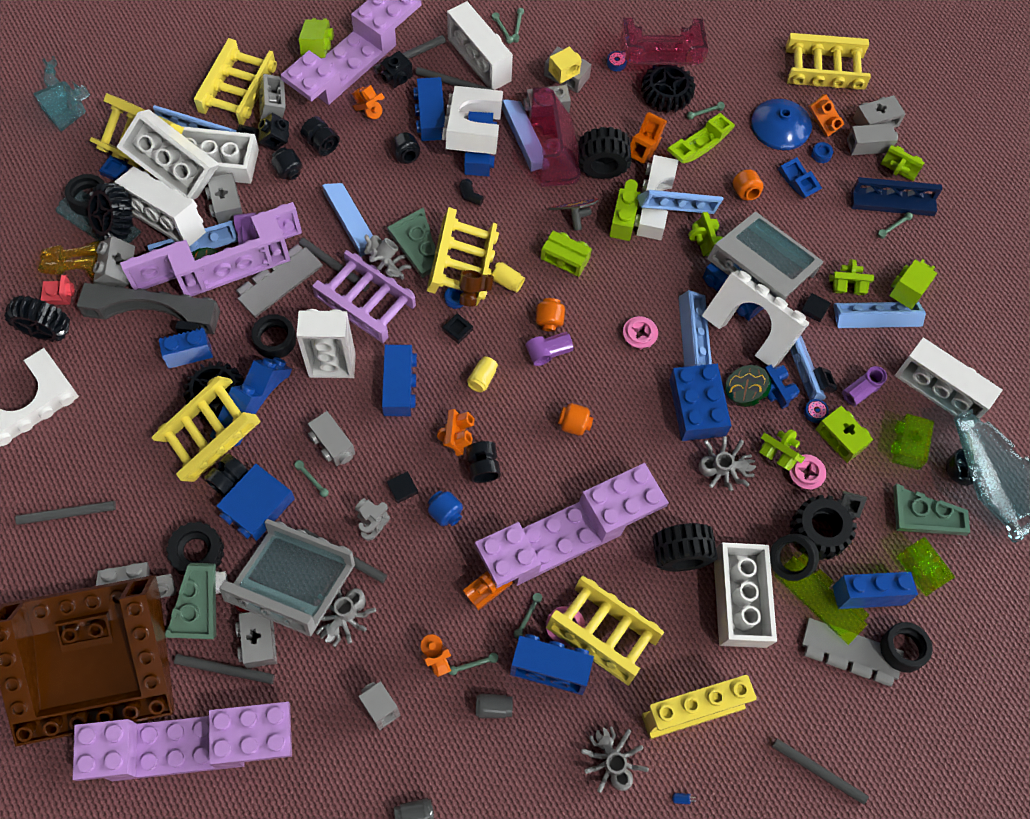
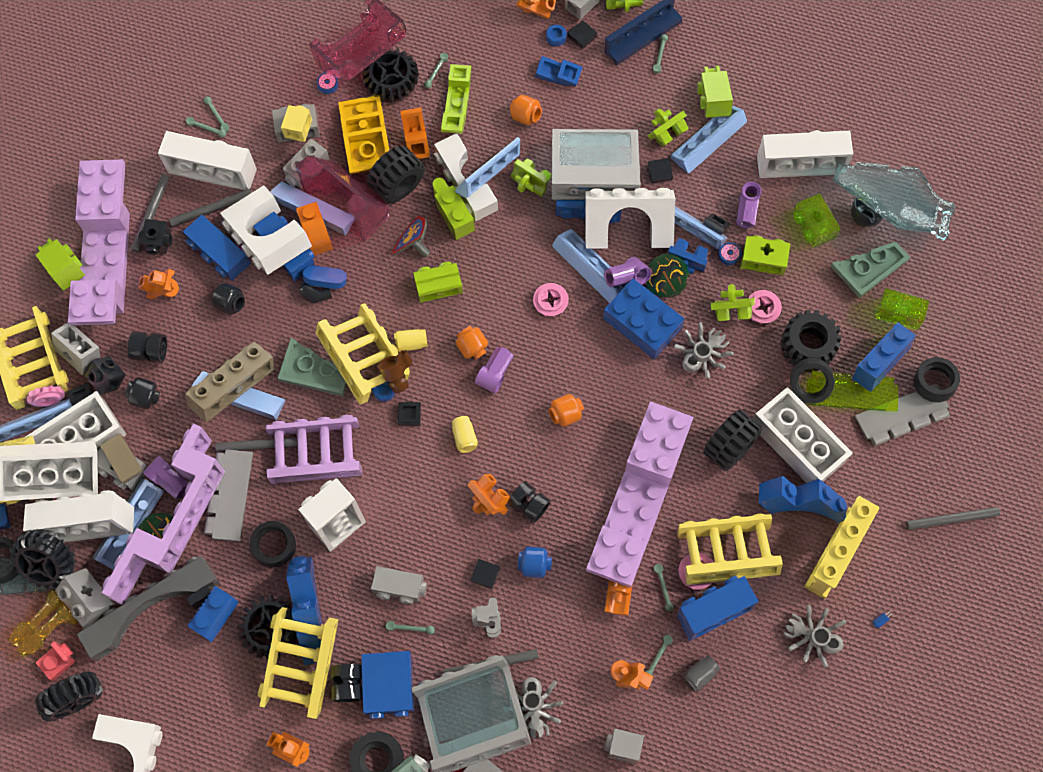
camera: 35 degrees left, 5 degrees up
(143, 486) = (289, 748): none -> orange hips
(221, 114) = (45, 396): none -> bright pink gear
(227, 191) = (121, 458): none -> dark tan tile
(350, 200) = (229, 381): none -> dark tan brick
(384, 251) = (300, 400): light grey animal -> none
(399, 380) = (405, 494): blue brick -> none
(487, 186) = (324, 277): none -> blue tile
(509, 148) = (315, 228): none -> orange brick
(611, 108) = (363, 132): none -> yellow slope
(712, 354) = (624, 273): none -> medium lavender piece
(712, 648) = (816, 497): none -> blue arch
(781, 124) = (504, 44): blue dish -> none
(843, 166) = (582, 34): none -> black tile
(854, 501) = (815, 302): dark grey slope -> none

